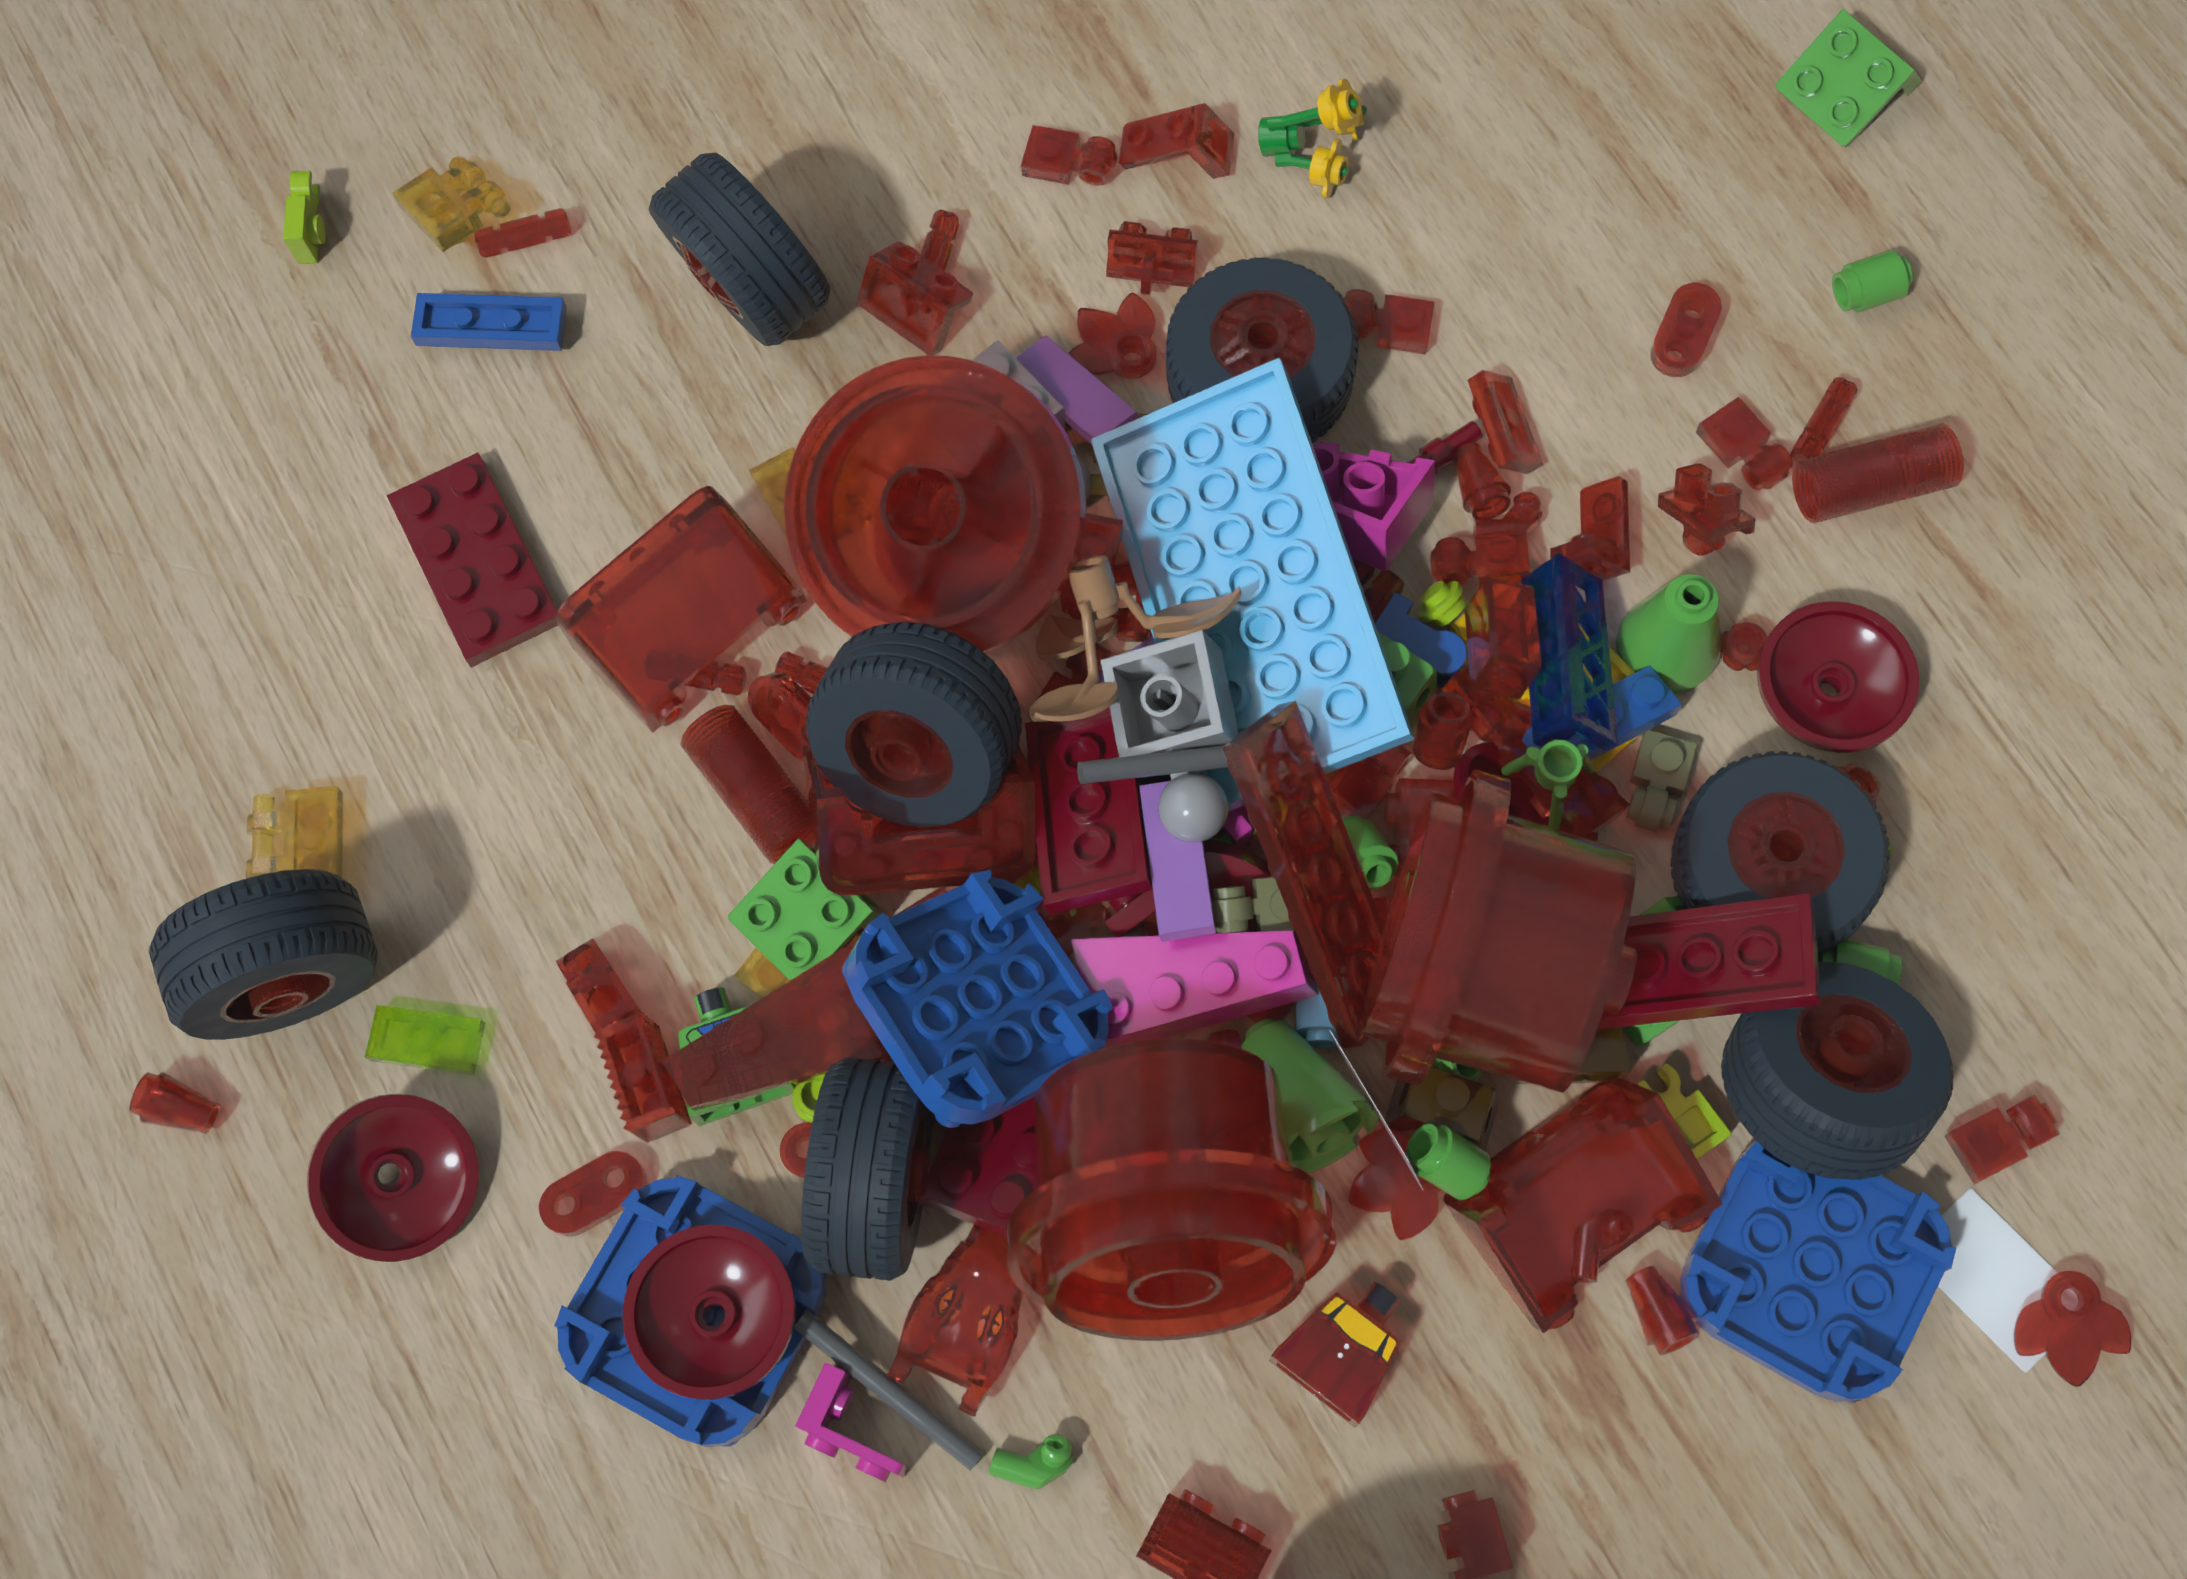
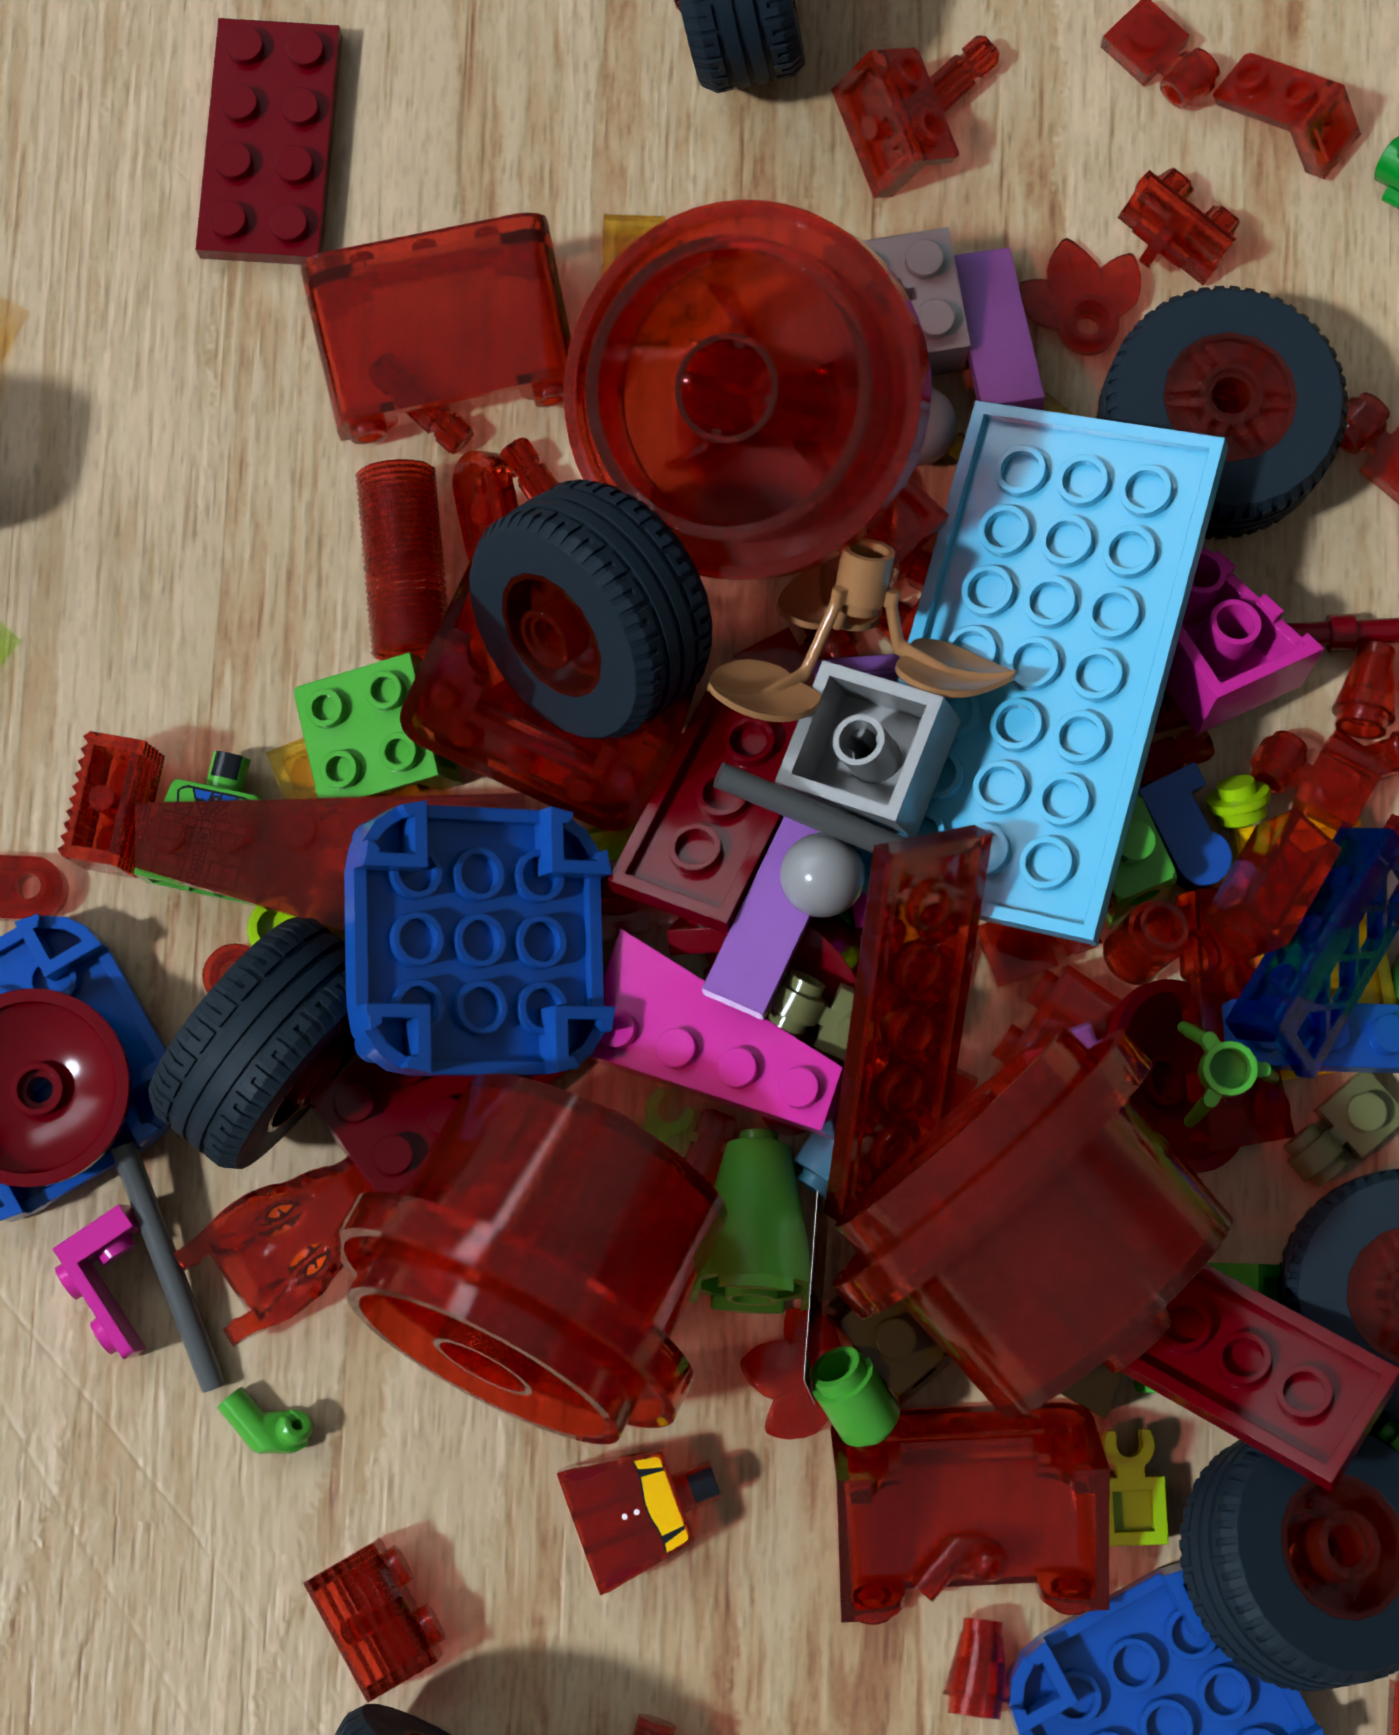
camera: 30 degrees right, 10 degrees up
(597, 986) = (126, 683): clear red leg -> none
(1372, 850) = (985, 1022): bright green brick -> none

